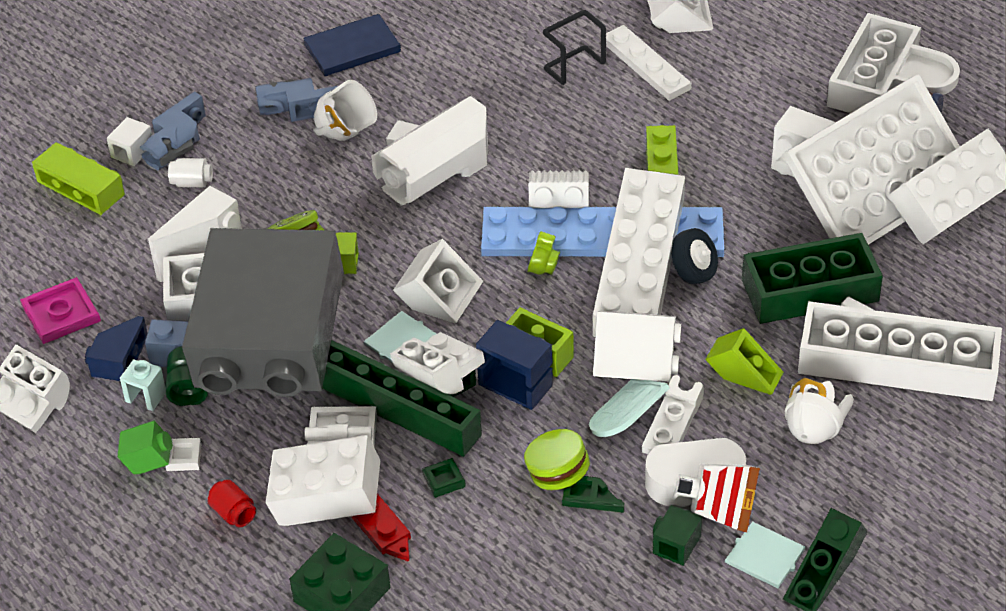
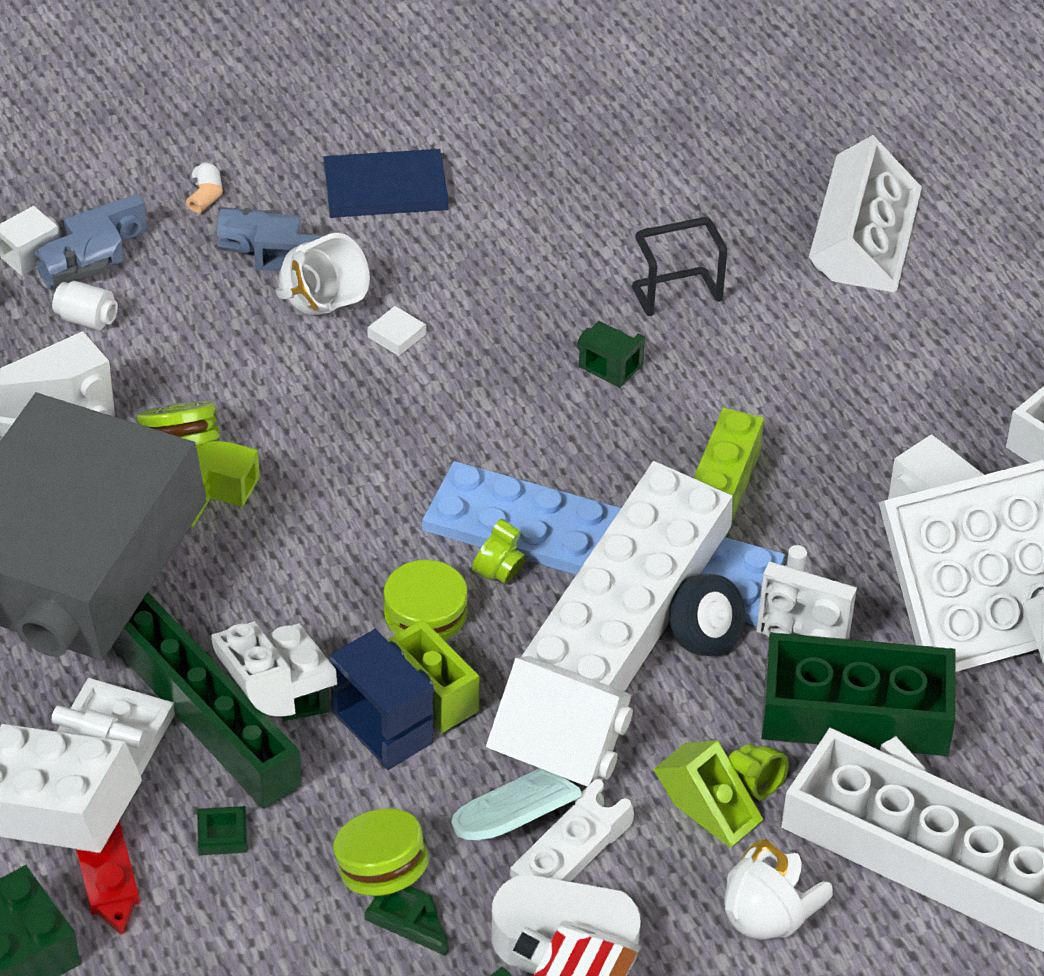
camera: 15 degrees right, 0 degrees up
(235, 76) = (209, 187): none -> arm
(395, 333) = (264, 603): light aqua piece -> none
(434, 152) = (417, 364): white brick -> none
(438, 283) = (340, 553): white slope -> none
(506, 292) = (426, 592): none -> lime head
(552, 113) = (610, 353): none -> dark green brick
(558, 189) = (564, 465): white brick -> none
(647, 63) = (778, 315): white plate -> none
(753, 230) = (802, 602): none -> white plate
(771, 338) = (759, 765): none -> lime piece

